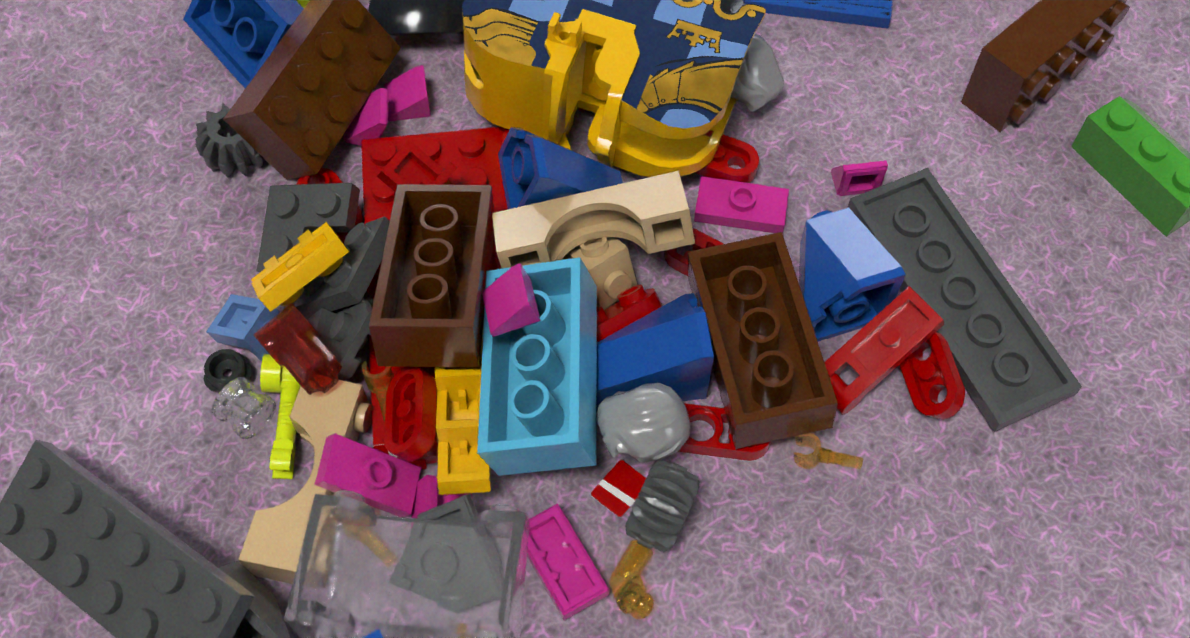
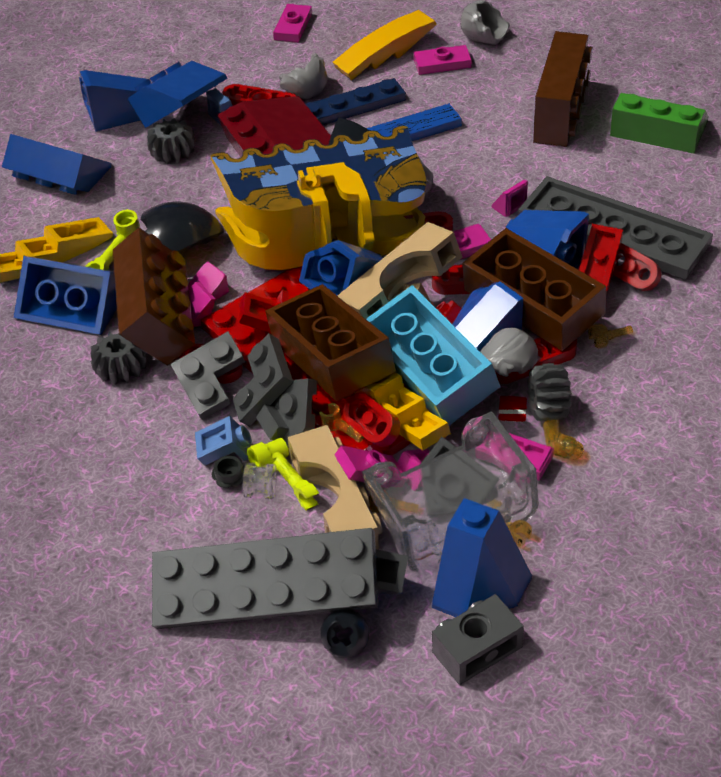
camera: 30 degrees left, 15 degrees down
(286, 276) = (237, 382): yellow plate -> none
(297, 347) = (269, 421): clear red piece -> none
(510, 302) = (394, 321): dark pink slope -> none

